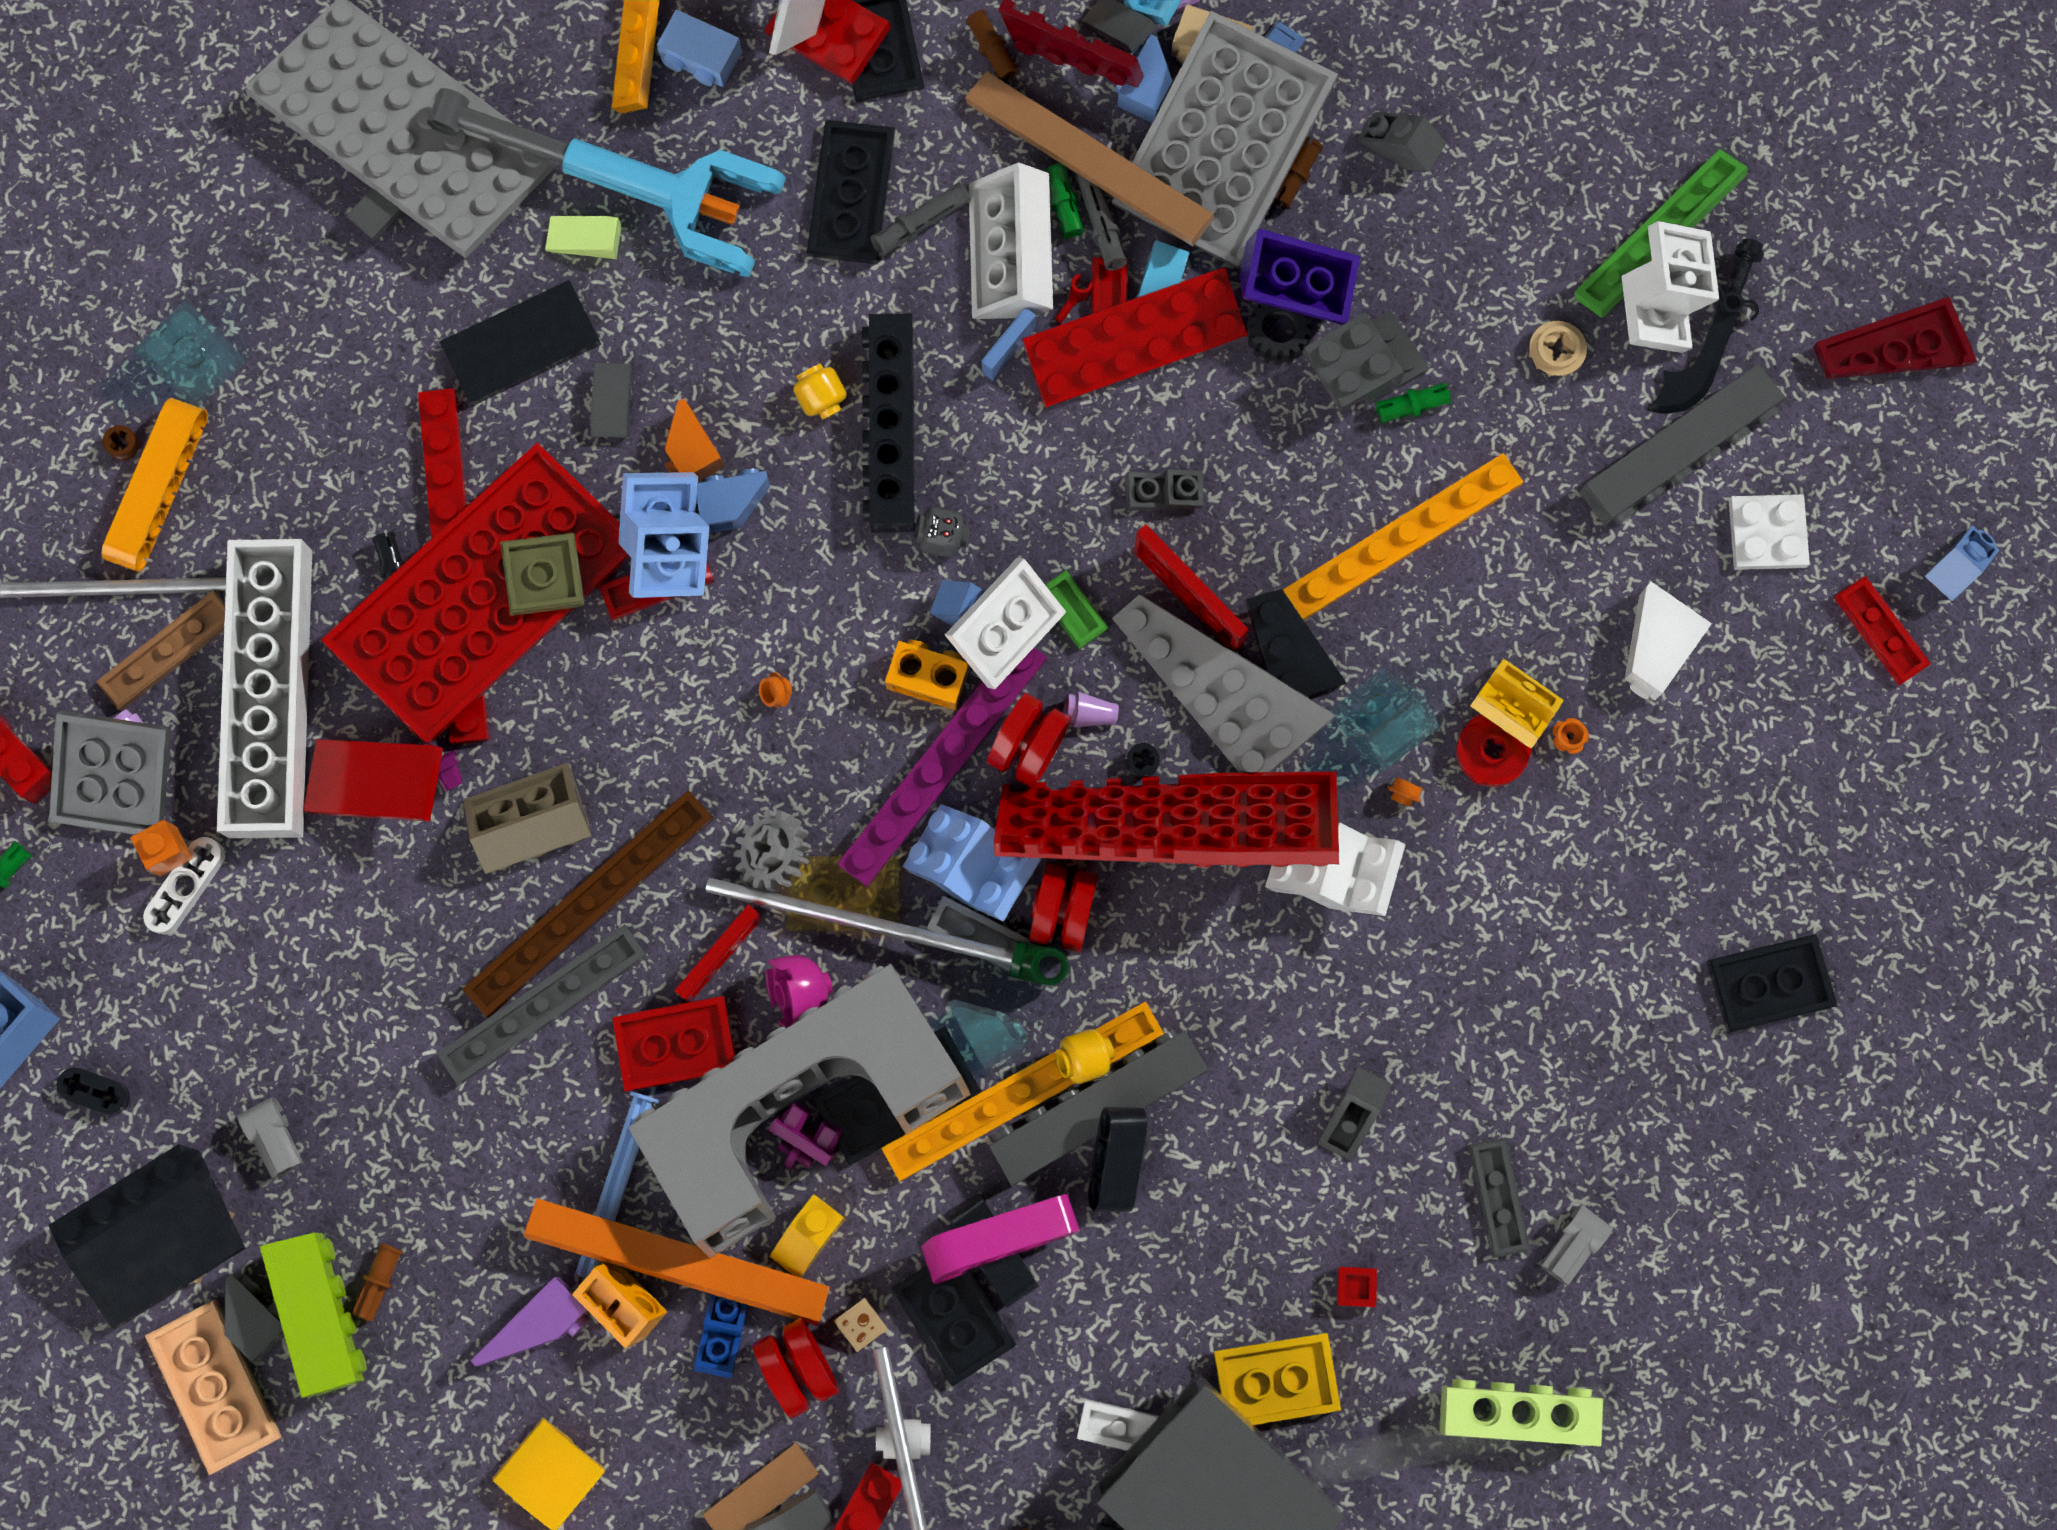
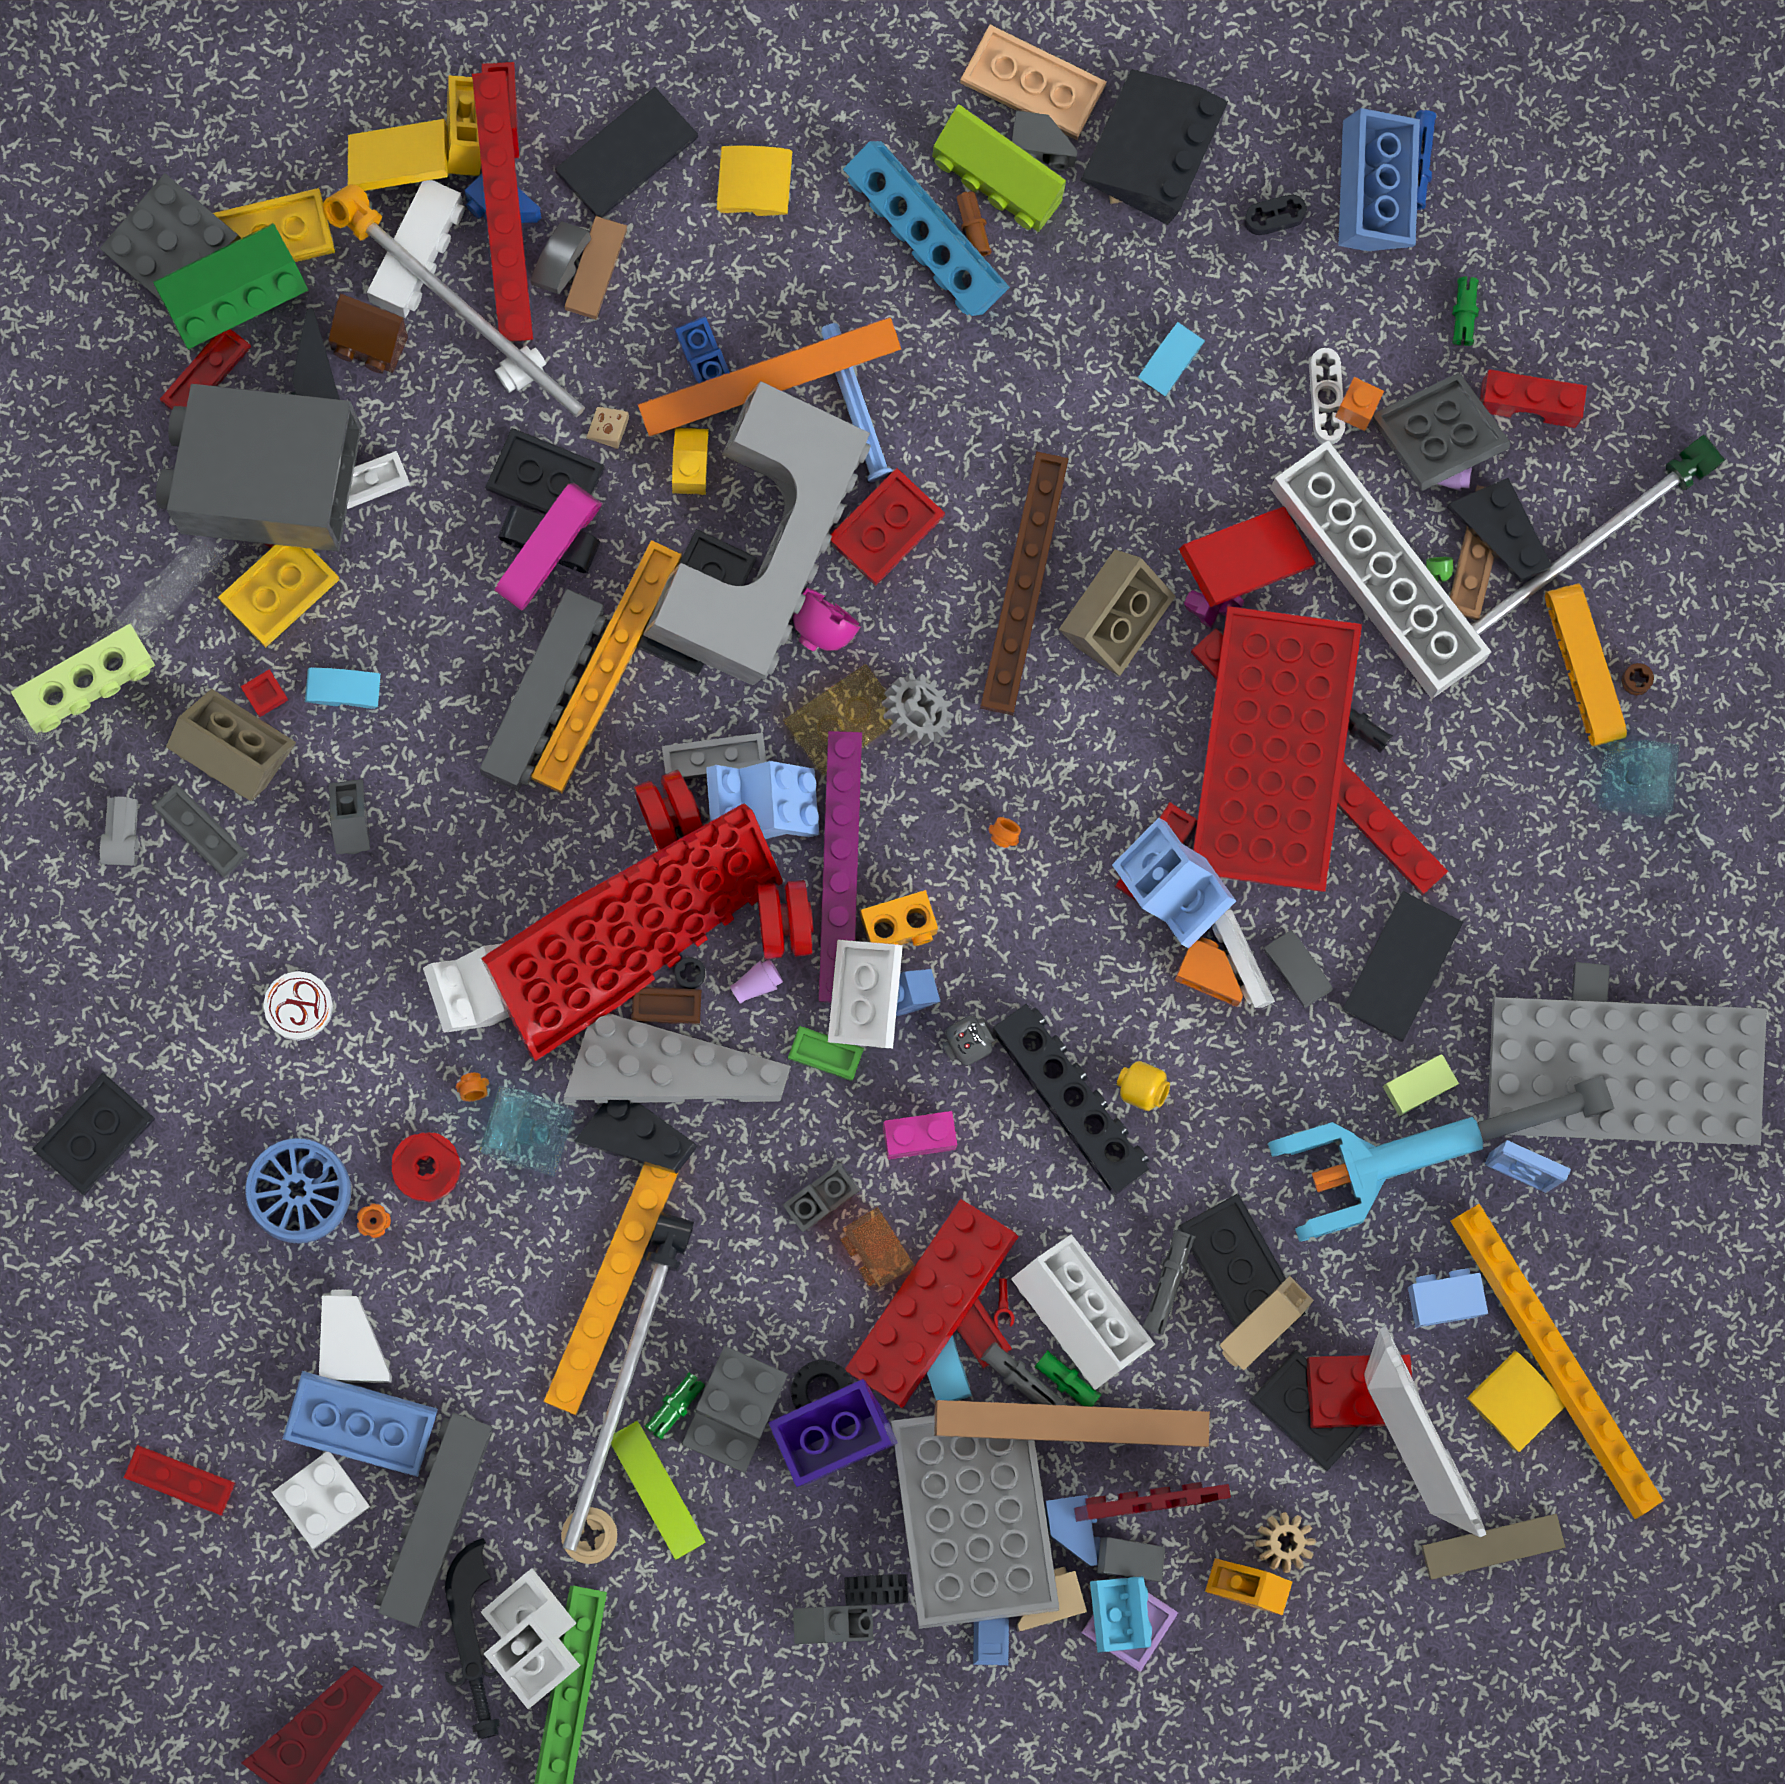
camera: 135 degrees right, 0 degrees up
(125, 650) = (1504, 528): none -> black wing
(209, 659) = (1440, 566): none -> bright green hinge
(268, 1131) = (1131, 271): light grey piece -> none
(295, 1019) = (1171, 359): none -> medium azure slope
(412, 1324) = (986, 282): none -> dark azure brick
(541, 1005) = (1002, 489): dark grey plate -> none
(542, 574) = (1241, 791): olive tile -> none
(543, 1320) = (835, 273): medium lavender slope -> none
(549, 90) = (1527, 1166): none -> light blue tile
(619, 1303) = (788, 320): light orange brick -> none
(654, 437) = (1242, 960): none -> white plate
(718, 954) = (901, 610): red tile -> none
(731, 500) = (1148, 949): medium blue slope -> none
(791, 1370) = (630, 359): red wheel -> none
(802, 1144) = (741, 521): magenta hips -> none
(864, 123) = (1265, 1324): none -> tan slope
(989, 1034) = (660, 683): clear light blue slope -> none
(992, 45) = (1220, 1471): reddish brown pin -> none
(1008, 344) = (1025, 1227): medium blue tile -> none
(1024, 960) = (671, 753): flat silver piece -> none
(1043, 479) = (919, 1135): none -> dark pink brick
(1084, 1056) = (577, 714): yellow head -> none
(1117, 1159) = (501, 658): black beam -> none
(1148, 412) = (876, 1249): none -> clear orange brick
(1182, 746) = (667, 1006): none -> reddish brown tile
(1189, 589) = (744, 1121): red tile -> none
(1280, 1241) = (343, 687): none -> medium azure slope
(1298, 173) = (897, 1537): reddish brown pin -> none
(1319, 543) = (670, 1237): none -> flat silver piece
(1349, 137) = (876, 1590): none -> black tyre
(1419, 1258) = (230, 744): none -> dark tan slope
(1475, 349) = (656, 1490): none -> lime slope
(1513, 972) = (298, 1005): none -> white tile
(1517, 703) = (431, 1213): yellow slope -> none
(1583, 828) = (317, 1152): none -> medium blue piece
(1697, 566) = (360, 1423): none -> medium blue tile
(1963, 562) = (148, 1579): medium blue slope -> none

